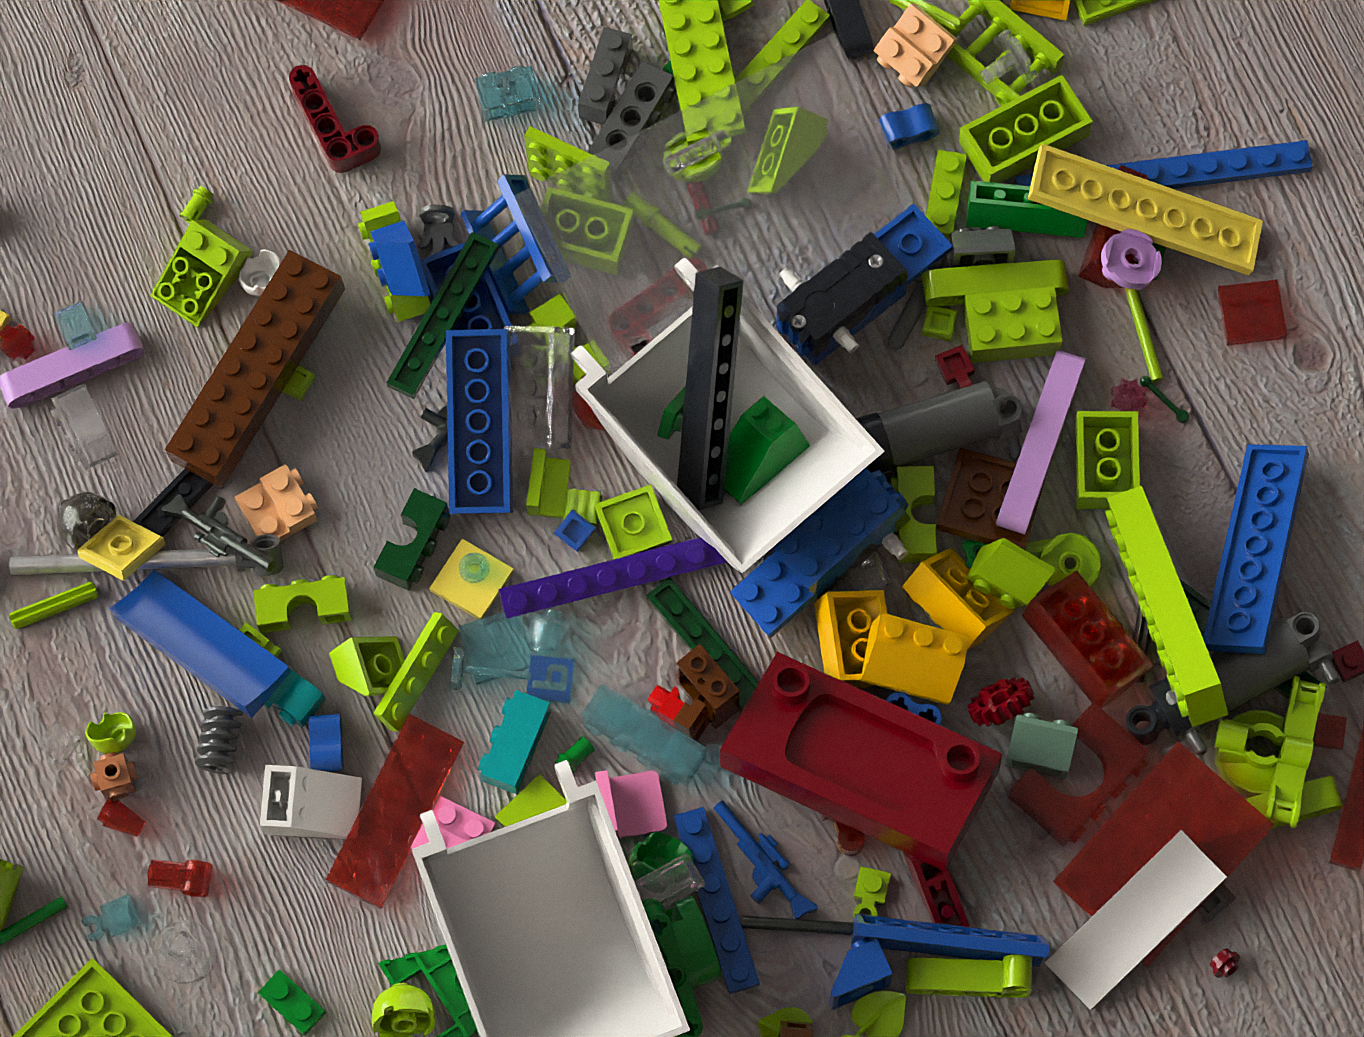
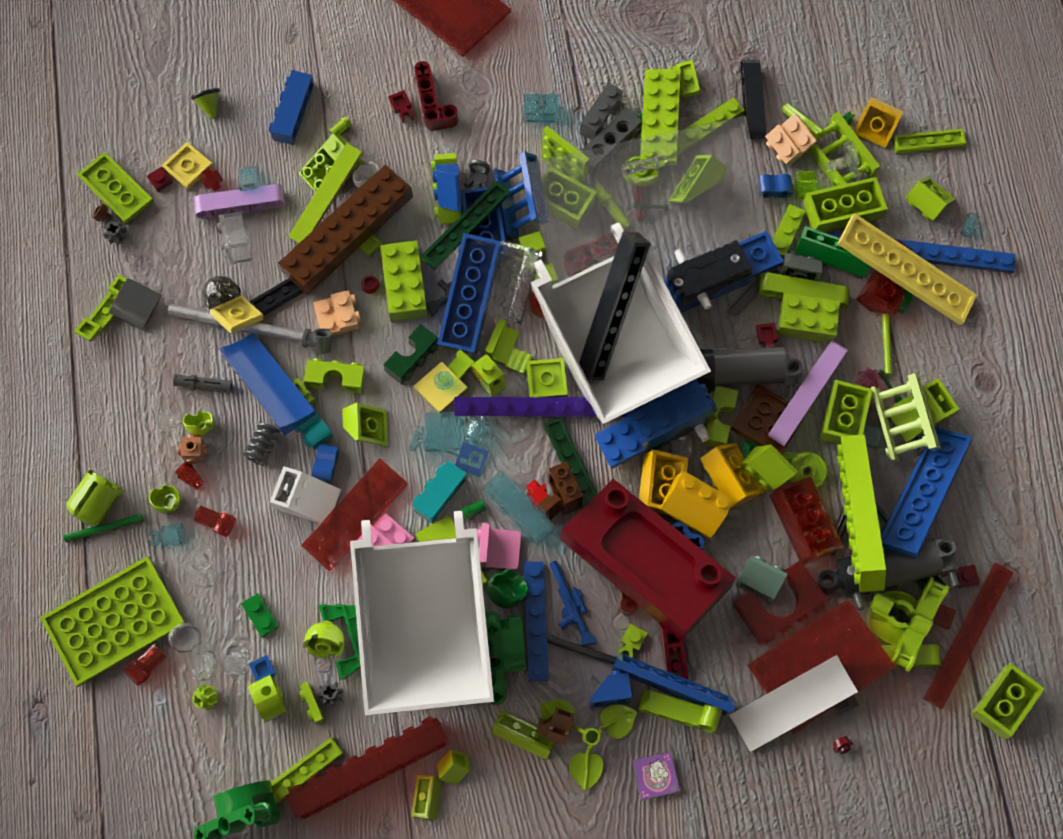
camera: 10 degrees right, 0 degrees up
(53, 605) = (188, 338): lime axle -> none
(94, 863) = (165, 499): none -> lime hair
(97, 668) = (202, 383): none -> dark grey pin
(110, 192) = (292, 107): none -> blue brick
(207, 320) = (326, 192): none -> lime tile
(219, 536) = (296, 320): pearl dark grey piece -> none
(283, 143) = (401, 104): none -> dark red plate
(316, 446) = (370, 284): none -> dark red plate
(368, 427) = (403, 281): none -> lime brick
(416, 672) = (391, 434): lime plate -> none
(494, 536) = (461, 364): none -> lime panel
(539, 540) = (486, 374): none -> lime torso
(575, 530) = (511, 373): blue tile -> none
(671, 881) = (509, 603): clear slope -> none
(672, 416) = (586, 320): green plate -> none
(760, 448) = (635, 352): green slope -> none
(939, 323) = (763, 306): lime tile -> none
(954, 111) = (805, 182): none -> clear neon green brick
(1001, 701) = (743, 544): dark red gear -> none
(1120, 270) = (882, 300): lavender plate -> none
(1154, 85) = (929, 198): none -> lime slope
(1155, 484) = (872, 436): none -> clear light blue plate
(1223, 424) = (940, 405): none -> lime slope
(1225, 116) = (968, 228): none -> clear light blue pin
(1228, 442) = (924, 422): none -> yellowish green fence
(1252, 312) = (956, 348): clear red plate -> none

